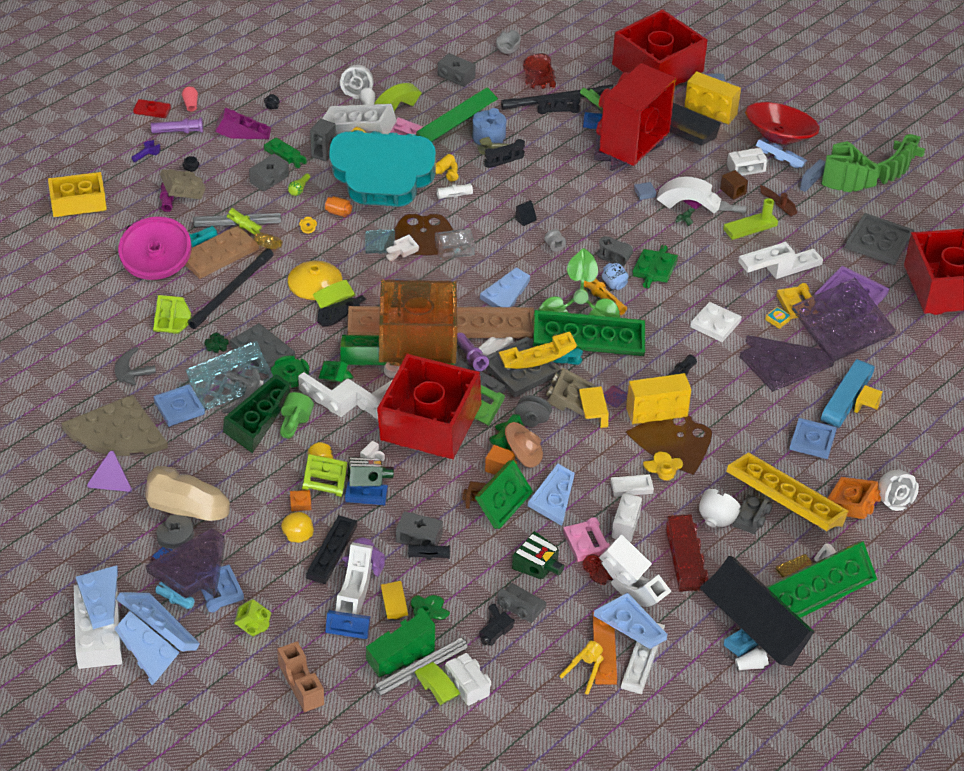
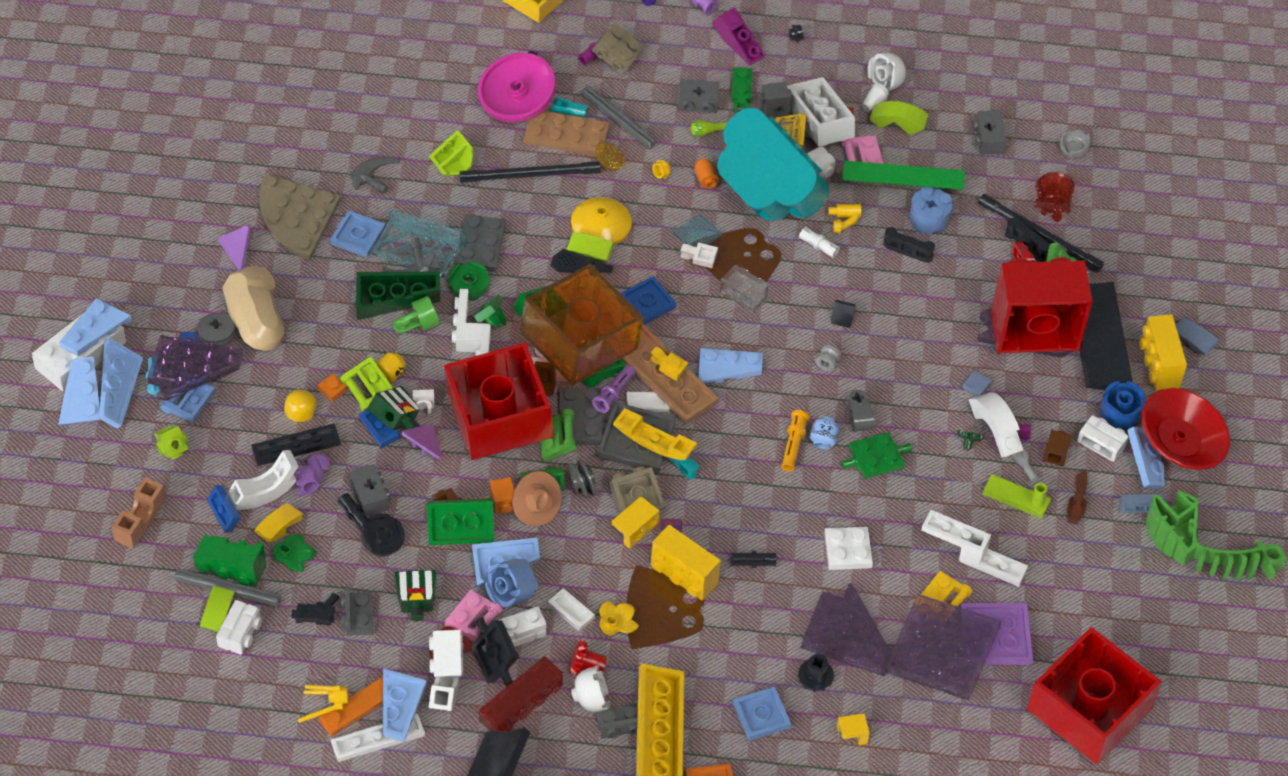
camera: 50 degrees right, 10 degrees up
(190, 163) = (654, 36): black plate -> none
(216, 343) = (456, 208): dark green plant -> none
(244, 221) = (615, 123): lime pin -> none
(403, 474) = (425, 438): none -> medium lavender piece
(467, 546) = (382, 535): none -> black tile
(482, 311) = (670, 365): none -> yellow plate
(487, 141) = (904, 224): olive bar -> none
(574, 112) = (1021, 250): none -> red plate
(582, 268) = (768, 398): bright green plant -> none
(591, 332) = (726, 461): green arch -> none
(593, 505) = (511, 582): none -> medium blue brick
(642, 535) = (495, 651): none -> black plate
(661, 44) = (1174, 267): red brick -> none
(686, 498) = (584, 658): none -> red gear
(731, 137) = (1122, 405): none -> blue brick
(778, 317) = (904, 594): yellow tile -> none
(805, 391) = (816, 673): none -> black gear
(847, 393) = (827, 709): dark azure beam -> none
(879, 239) = (1107, 608): dark grey plate -> none

